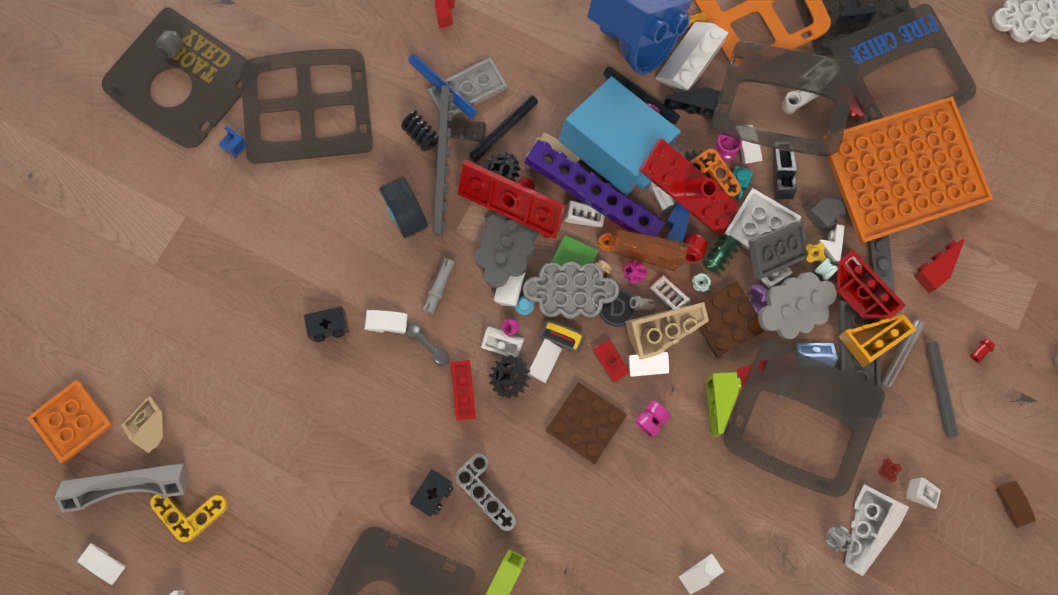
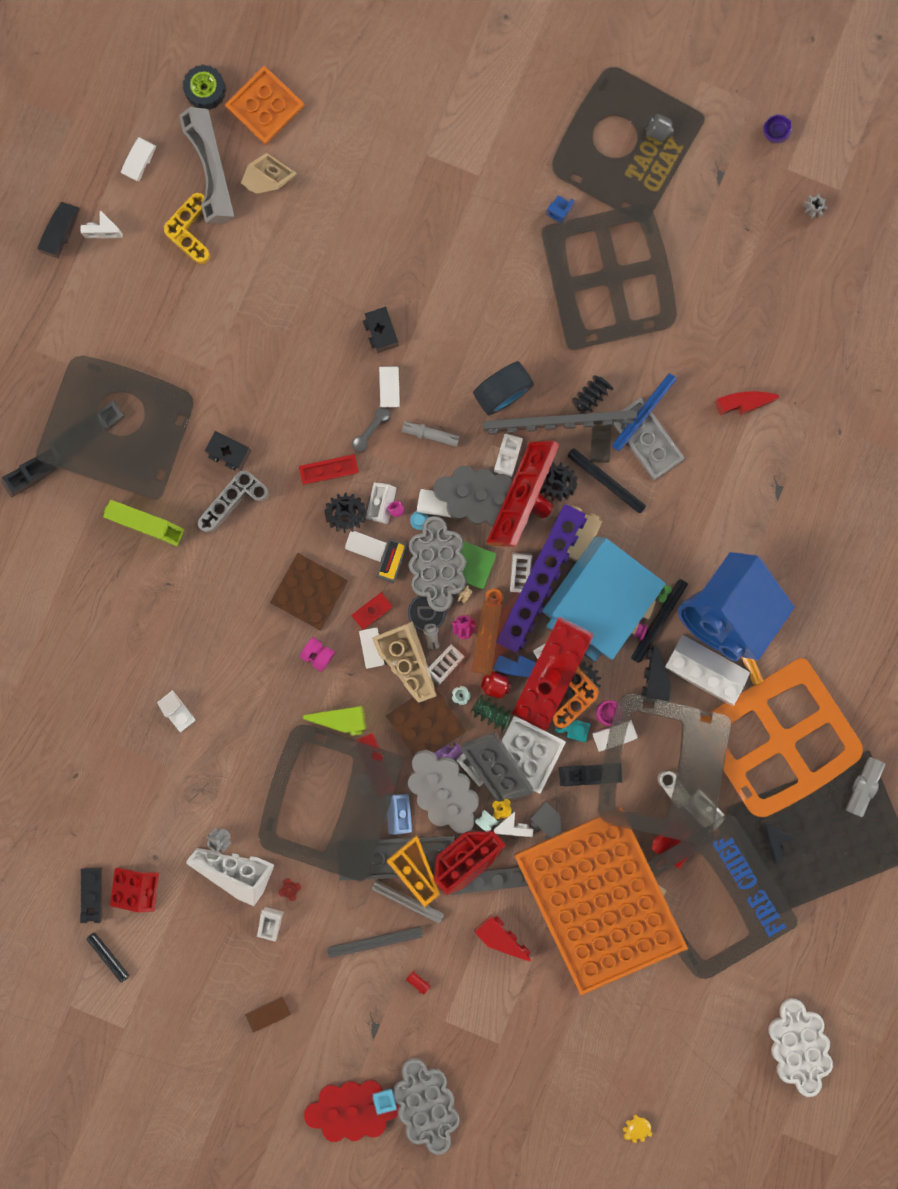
camera: 85 degrees right, 10 degrees up
(25, 484) = (206, 77): none -> black wheel
(467, 215) = (508, 455): none -> white slope

